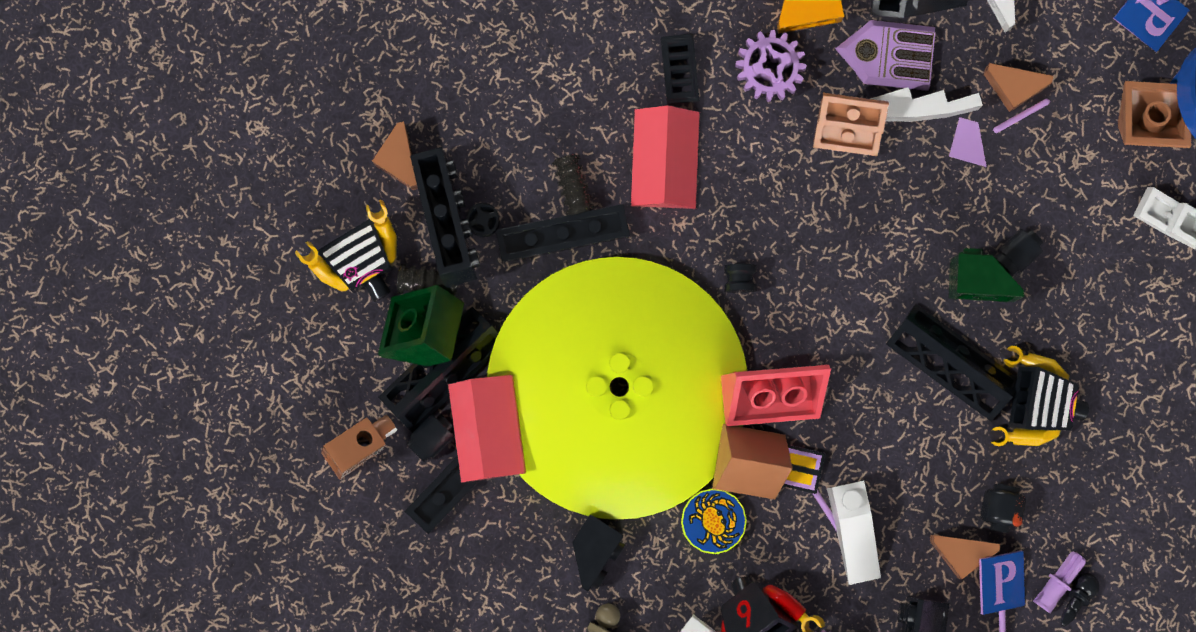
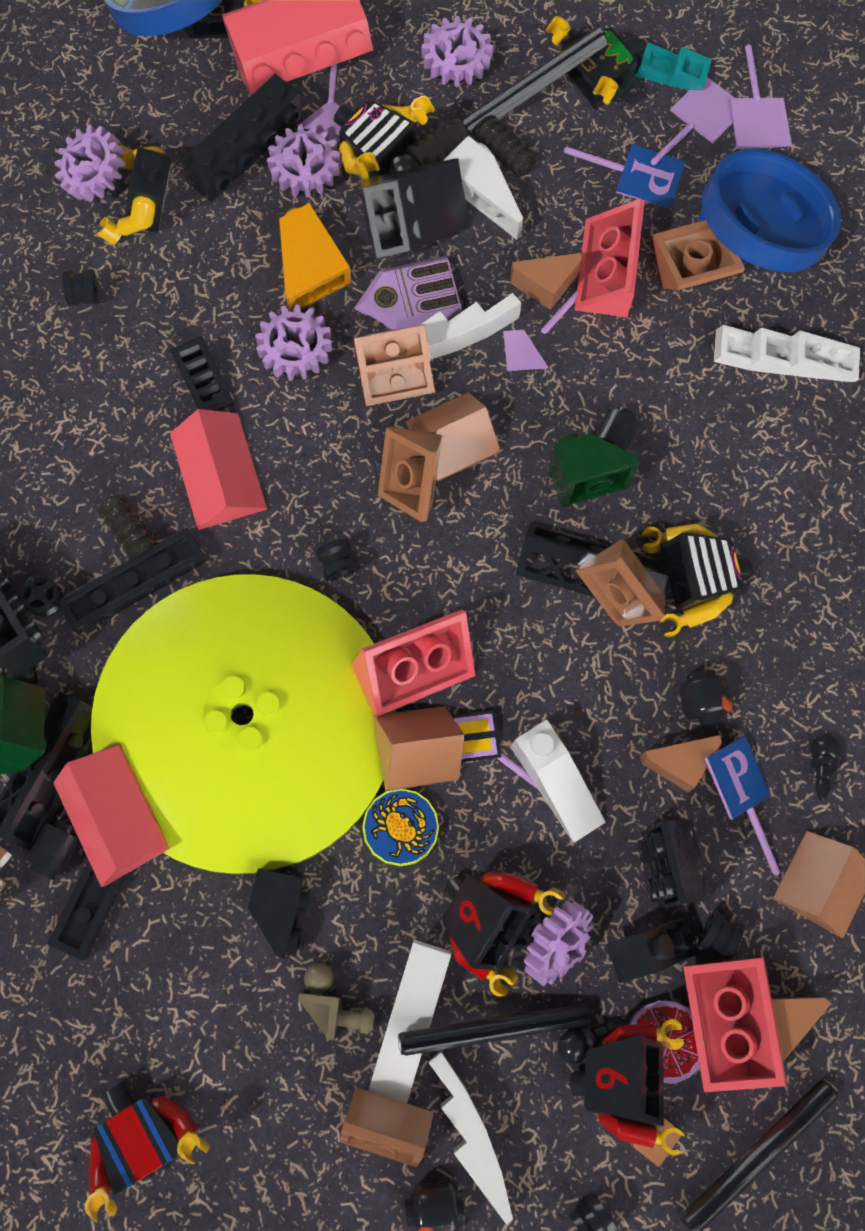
camera: 20 degrees left, 10 degrees down
(829, 225) = (410, 470): none -> nougat slope
(879, 200) = (465, 431): none -> nougat slope
(972, 391) = (623, 586): none -> nougat slope
(1060, 582) = (797, 755): lavender axle -> none
(1078, 87) = (610, 260): none -> coral slope

